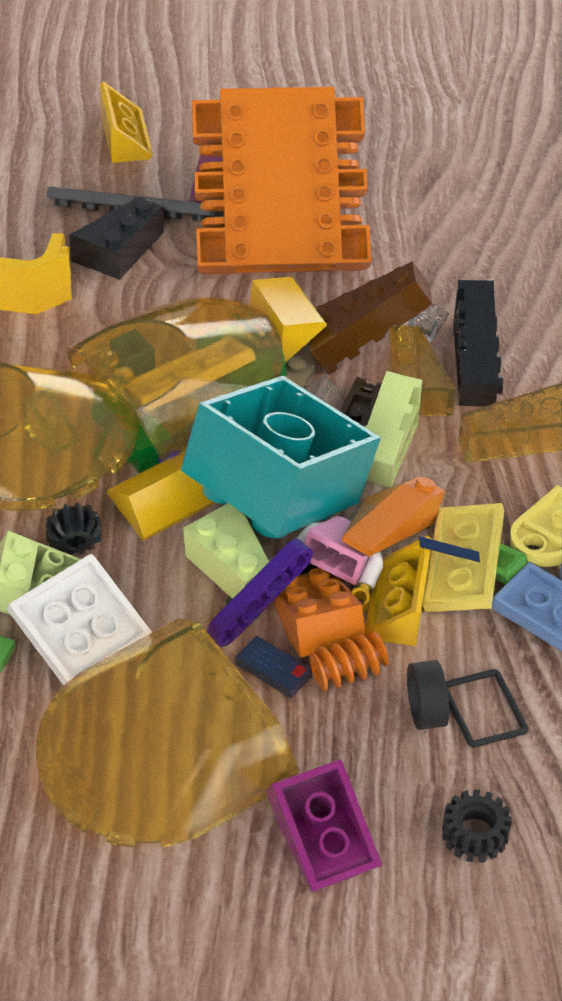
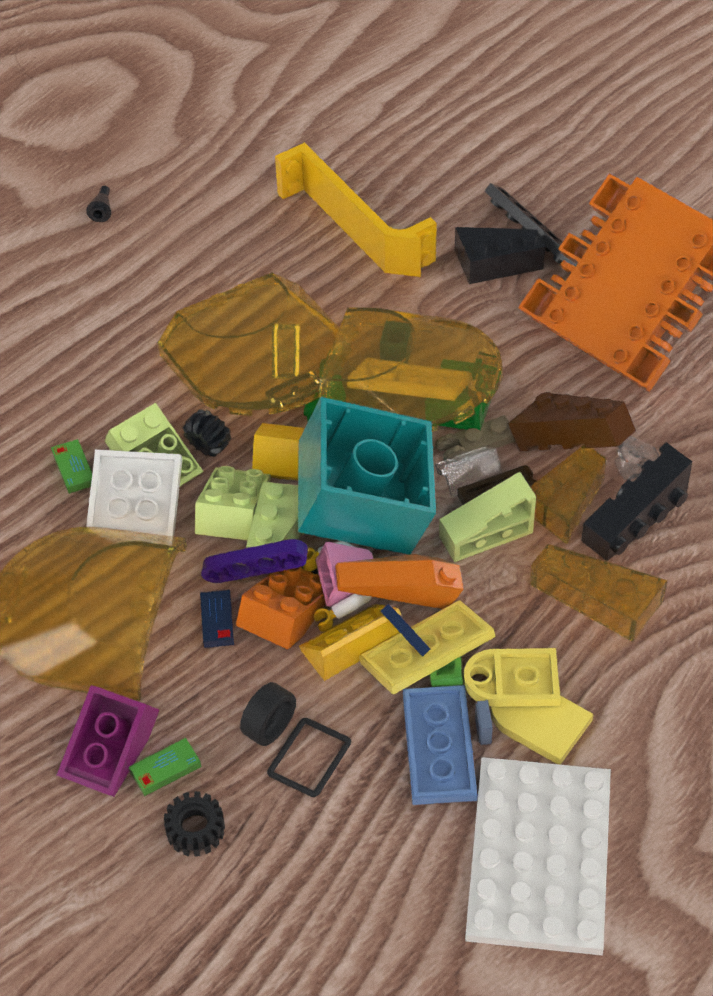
camera: 50 degrees right, 5 degrees up
(123, 127) = (612, 156): yellow slope -> none
(167, 569) = (229, 502): none -> yellowish green slope
(289, 311) = (524, 382): yellow slope -> none
(347, 659) = (254, 653): orange piece -> none
(391, 807) = (165, 766): none -> bright green tile

